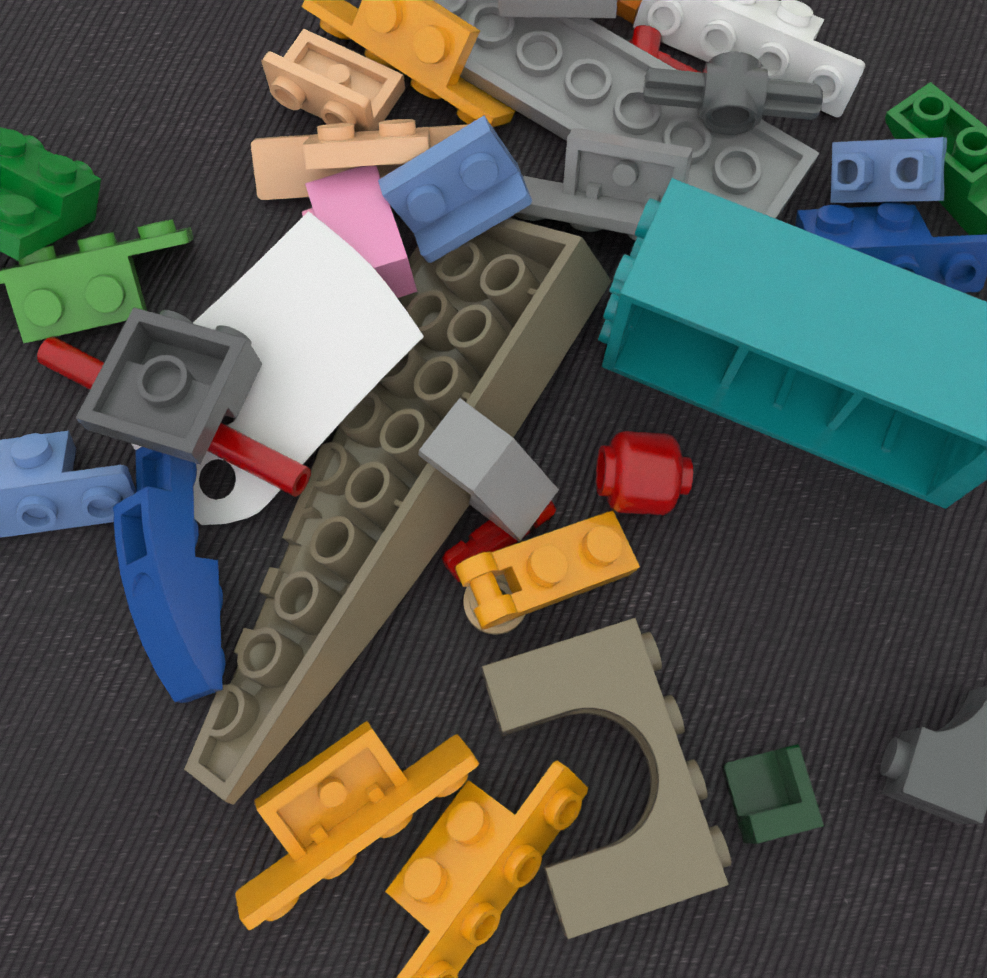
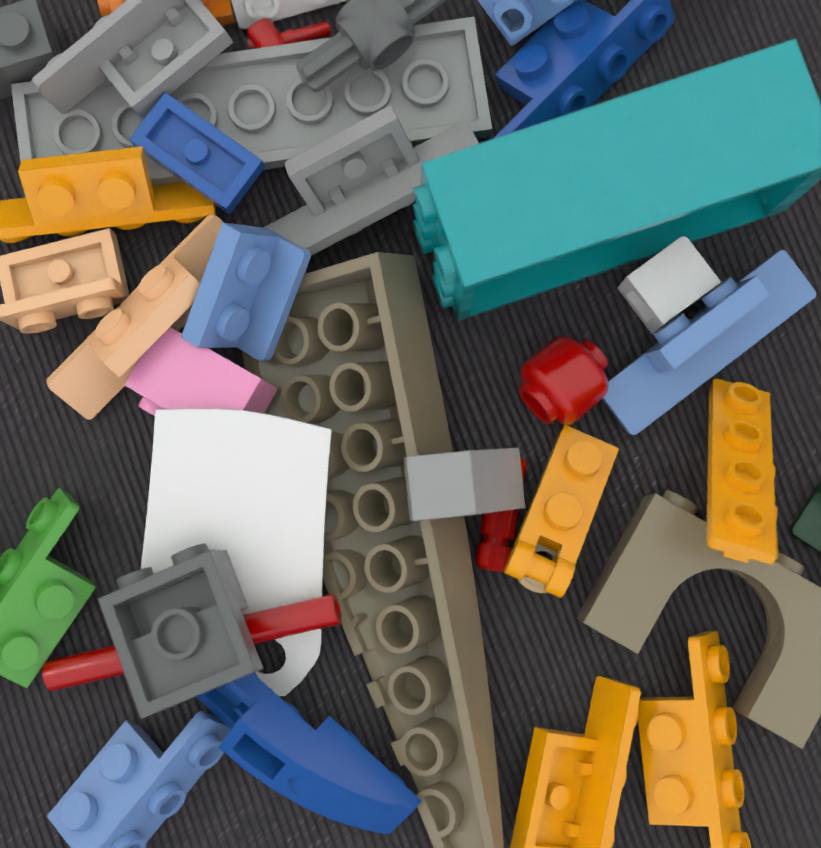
camera: 40 degrees left, 10 degrees up
(516, 72) = (197, 153): none -> blue plate
(712, 661) = (741, 473): none -> light orange bracket
(791, 544) = (708, 341): none -> medium blue bracket
(796, 474) = (668, 284): none -> white panel

